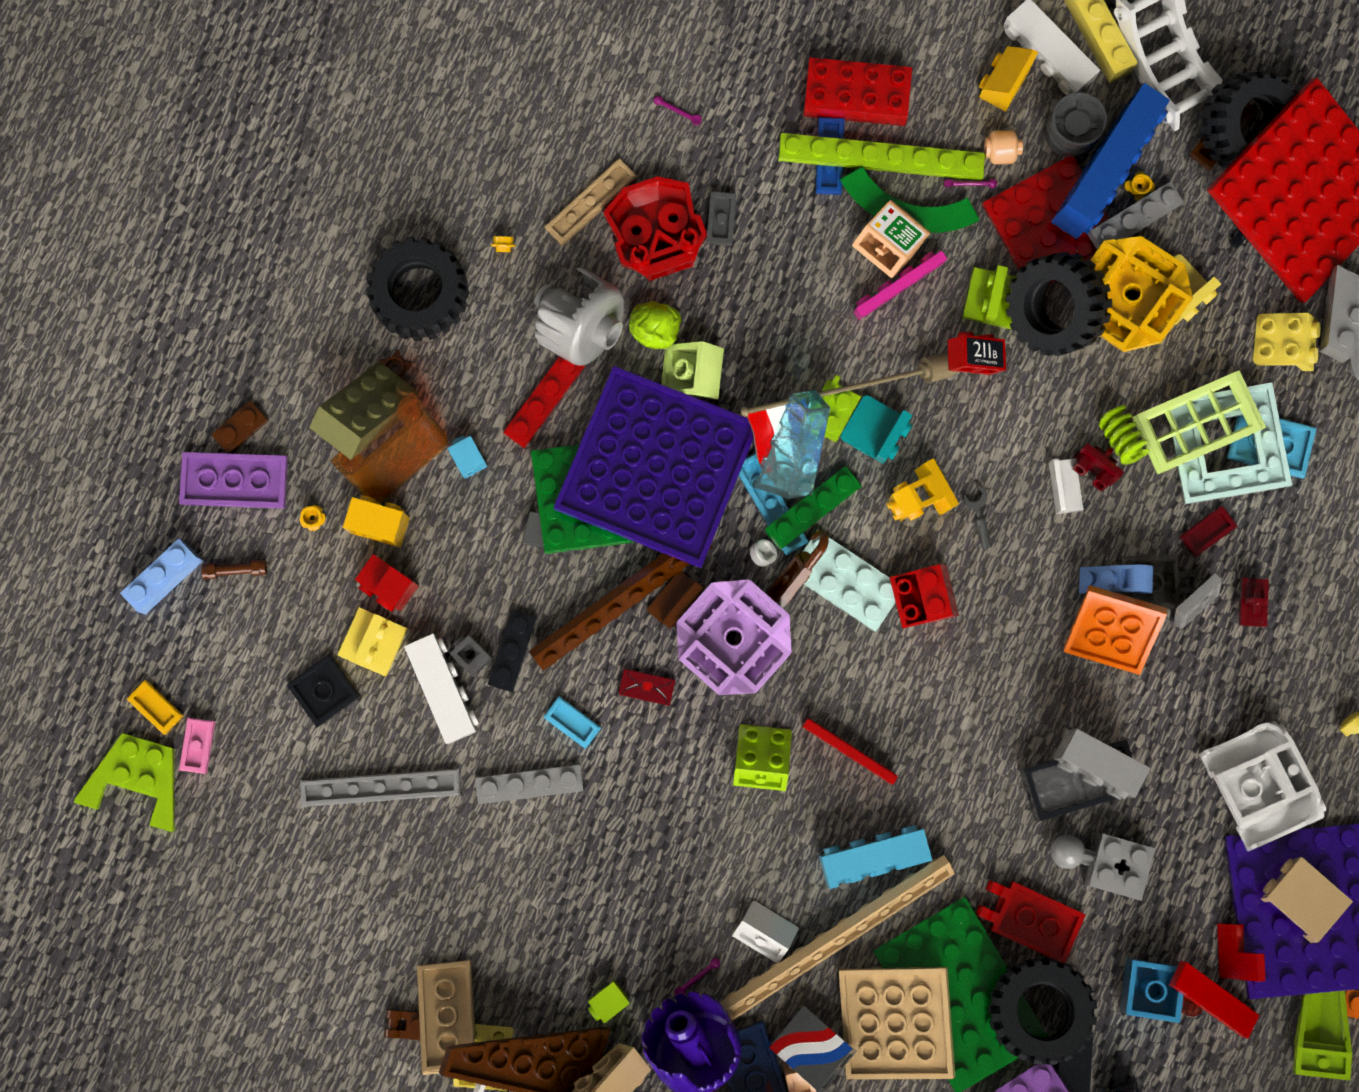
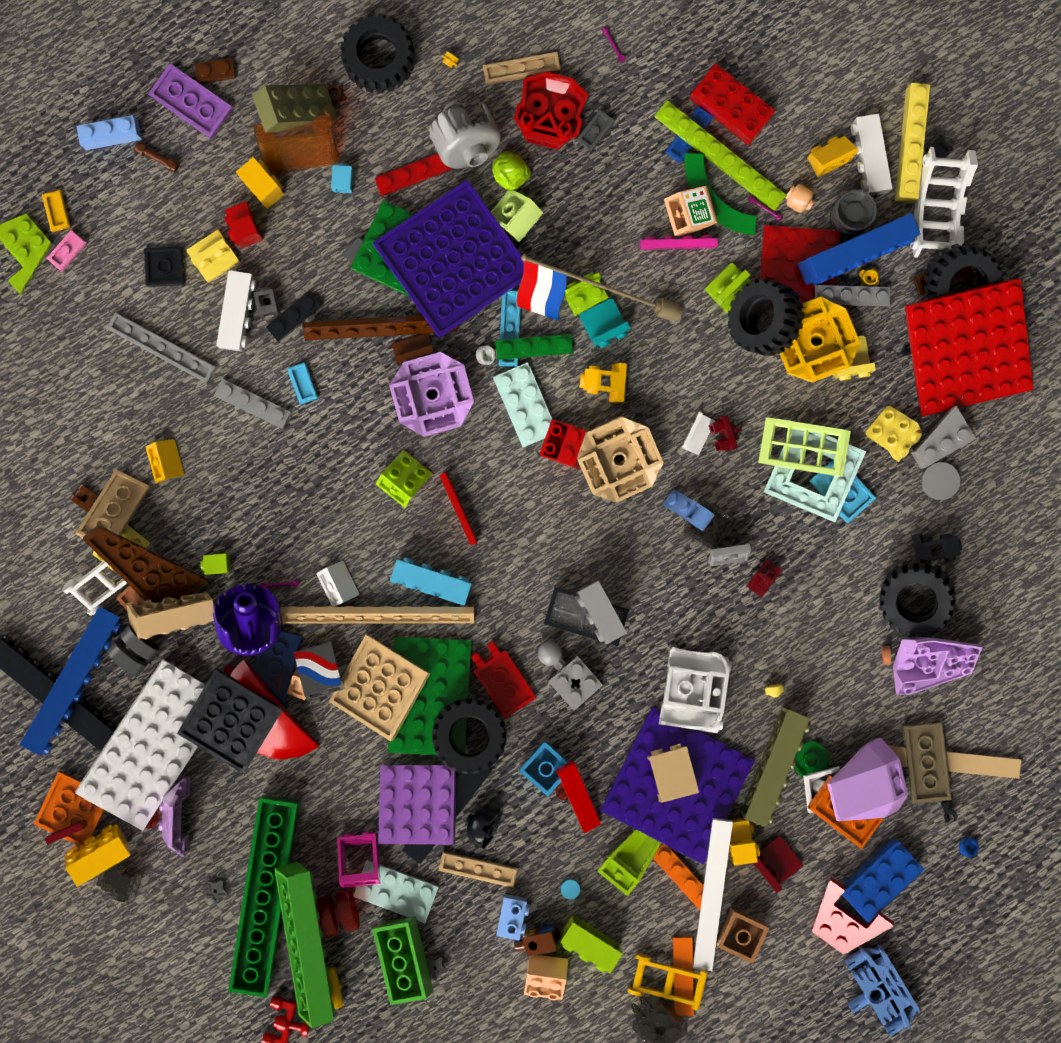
camera: 30 degrees right, 5 degrees up
(307, 512) = (219, 155): yellow plate -> none
(468, 918) = (164, 460): none -> yellow panel
(646, 687) = (361, 391): dark red tile -> none
(796, 448) = (543, 302): clear light blue wedge -> none
(797, 571) = (496, 379): reddish brown plate -> none
(976, 354) = (696, 316): brick -> none
(1024, 565) = (636, 470): none -> tan piece
(1115, 629) = (667, 539): orange plate -> none
(1122, 435) = (751, 425): lime piece -> none
(1208, 531) = (766, 517): dark red tile -> none
(1233, 960) = (607, 781): red tile -> none

